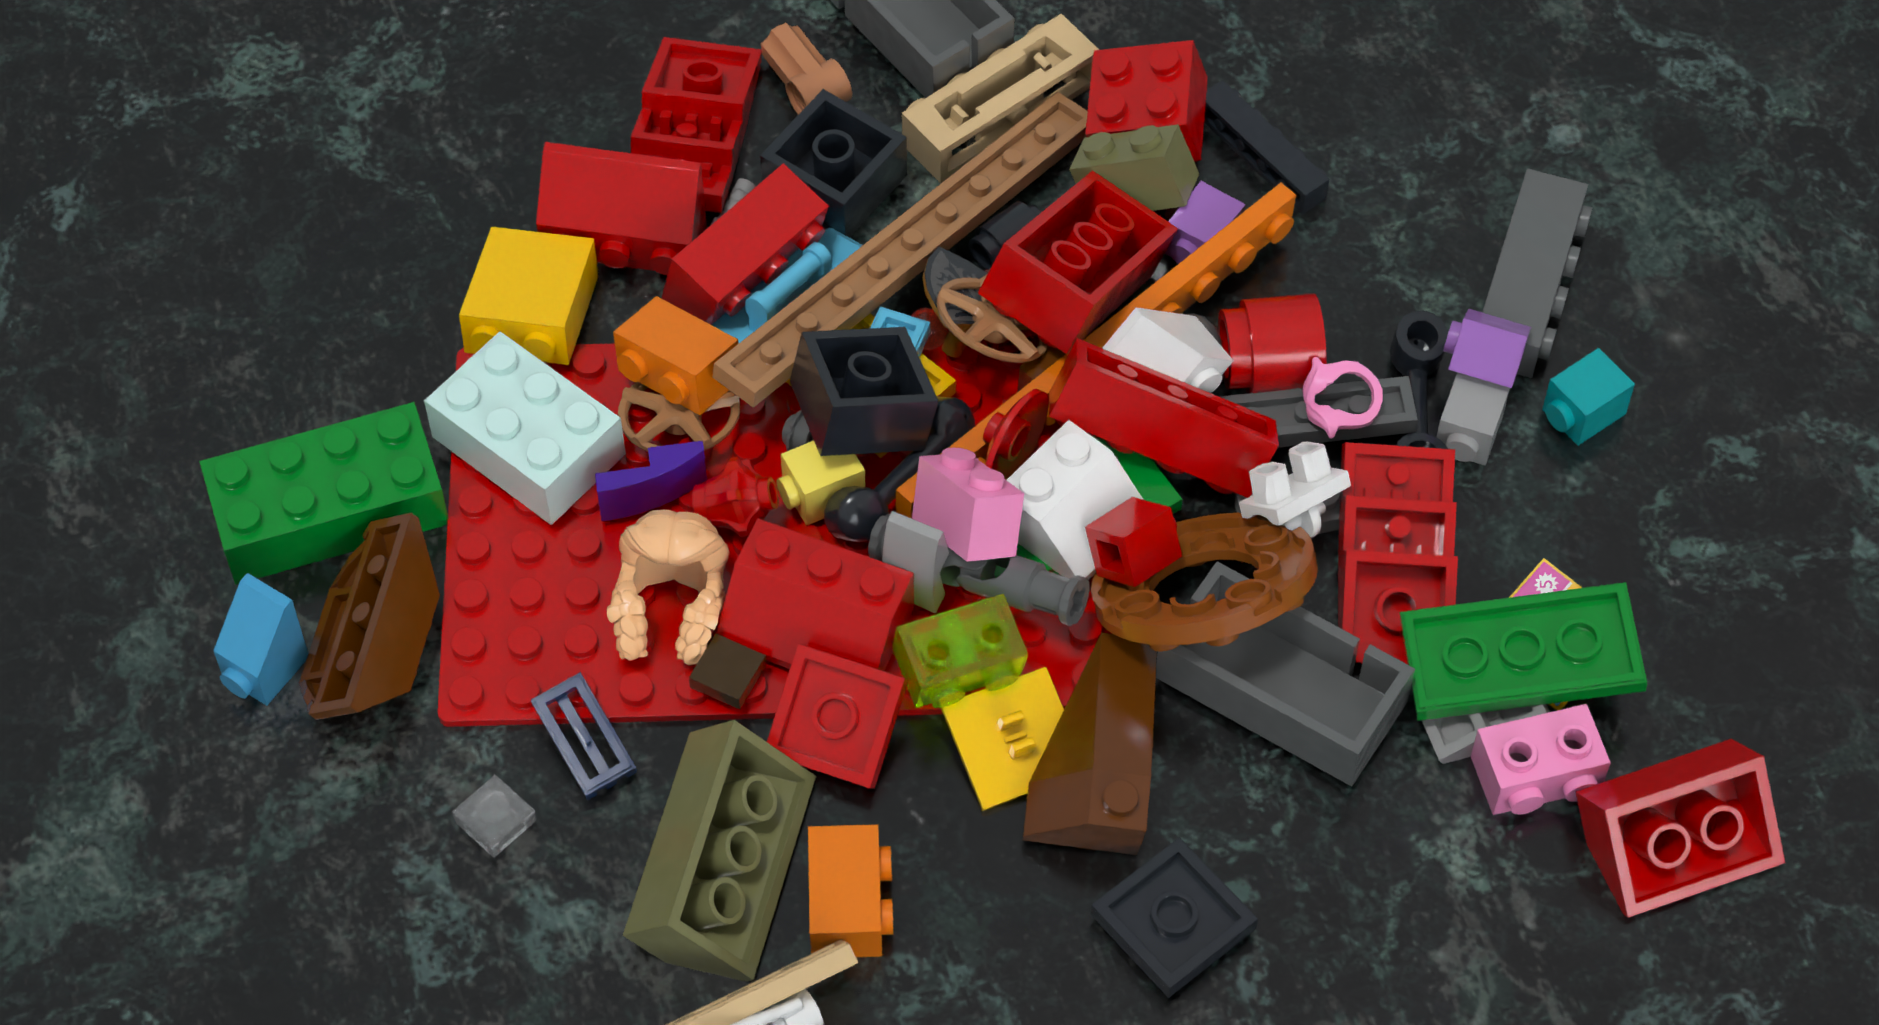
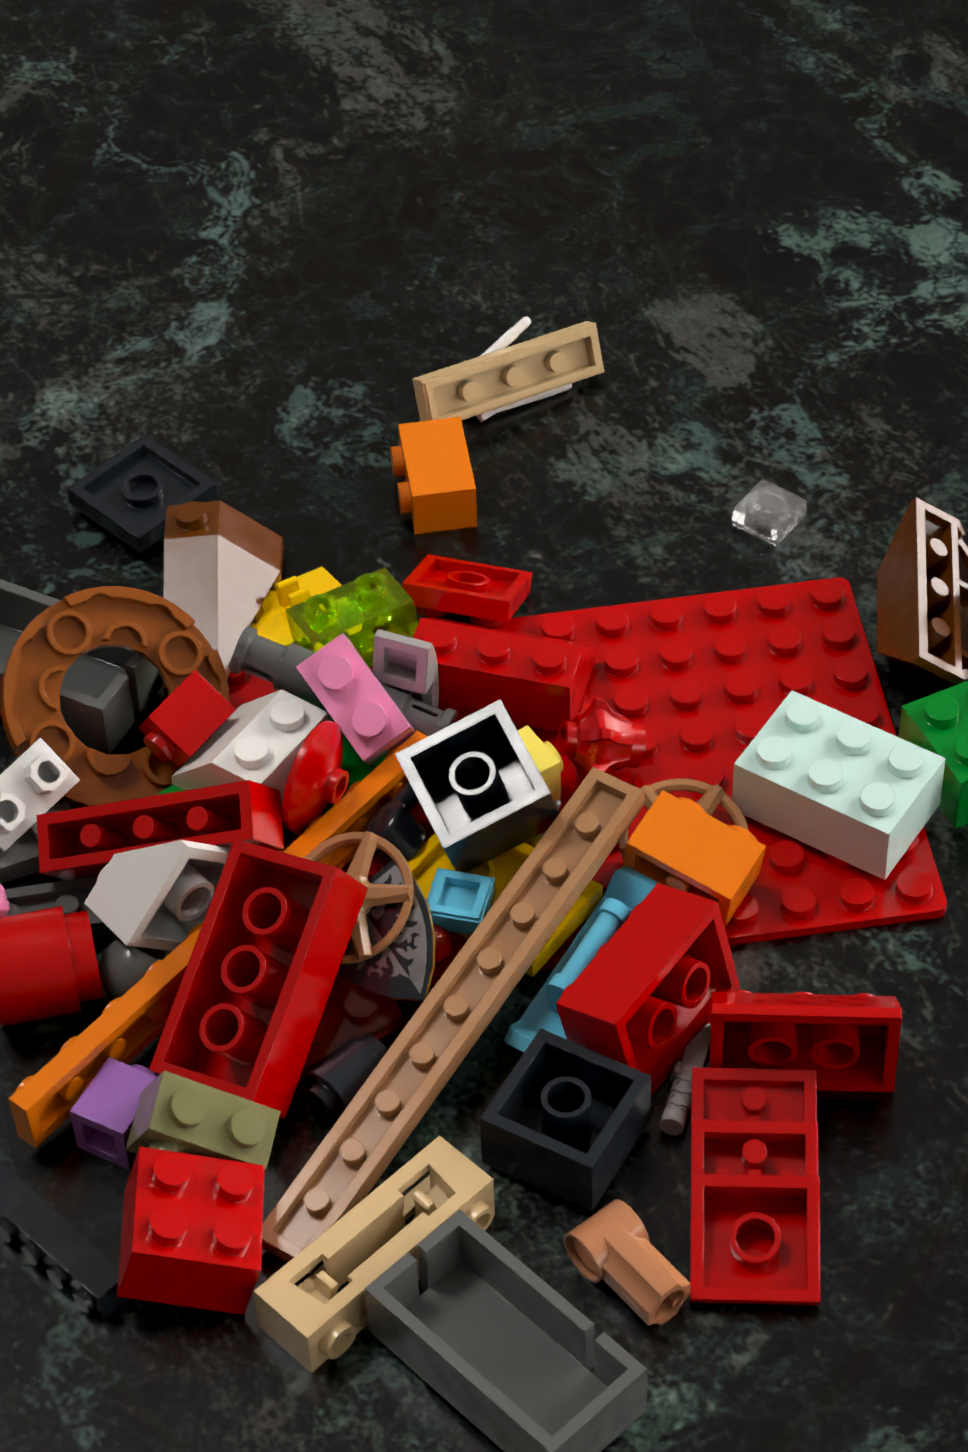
camera: 175 degrees right, 10 degrees down
(531, 291) = (883, 929): yellow brick -> none
(607, 776) = (703, 565): tile -> none
(662, 549) = (649, 659): light nougat hair -> none
(670, 475) = (696, 748): dark purple slope -> none
(720, 853) = (557, 488): olive slope -> none
(727, 671) = (578, 616): dark brown tile -> none

